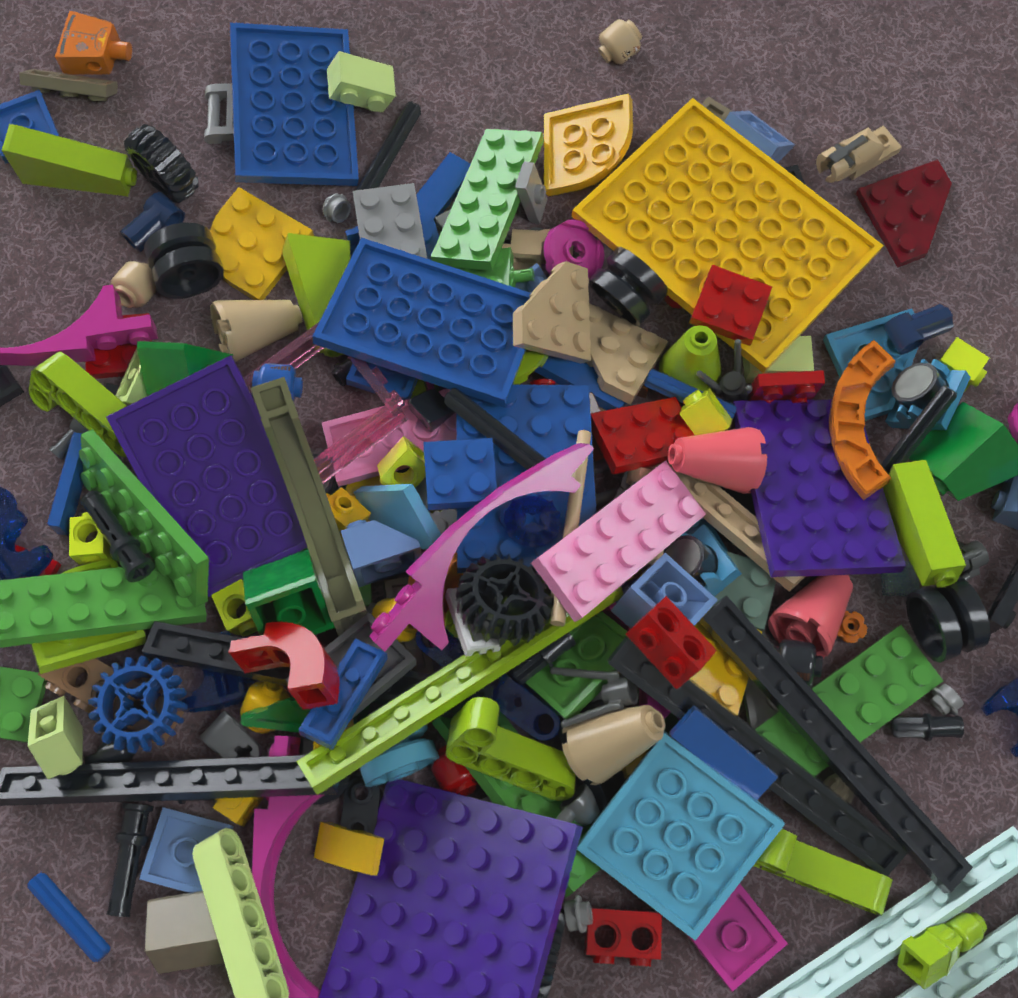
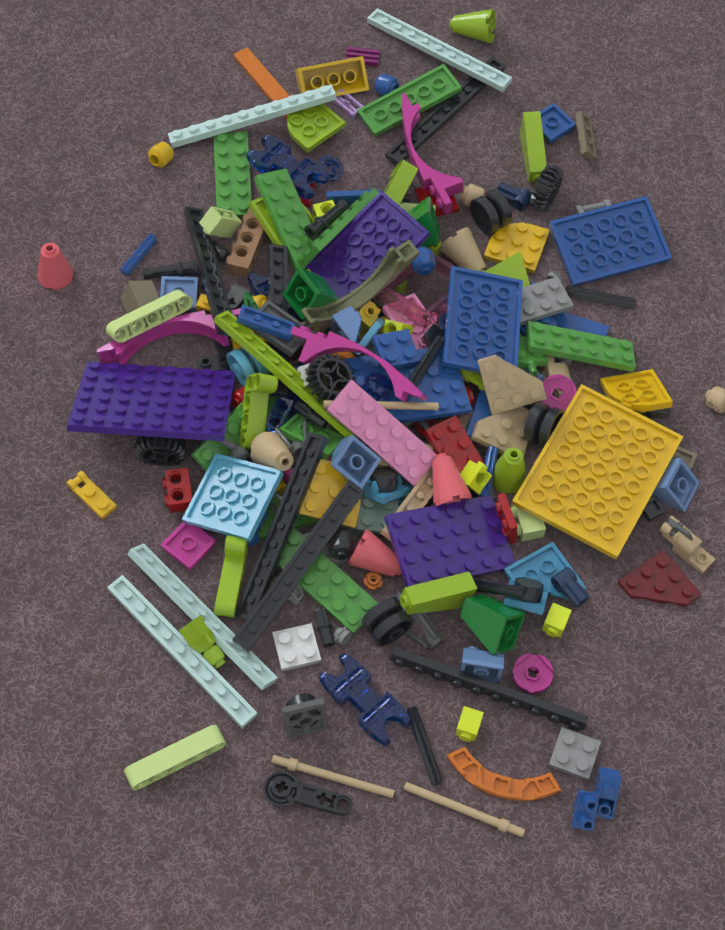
camera: 75 degrees right, 10 degrees down
(90, 46) = (612, 139): orange torso -> none
(128, 714) = (241, 242): blue gear -> none
(284, 644) = (278, 300): red arch -> none
(349, 848) = (195, 358): yellow slope -> none
(360, 82) = (634, 269): yellowish green brick -> none
(531, 192) = (591, 368): light grey plate -> none
(578, 914) = (183, 460): light grey plate -> none
(671, 642) = (328, 457): red brick -> none
(722, 752) = (278, 502): blue tile -> none
(731, 304) = (545, 474): red plate -> none
(733, 383) = (509, 495): dark grey plant -> none
(848, 419) = (499, 552): orange tile -> none
(955, 782) = (296, 647): none -> white plate

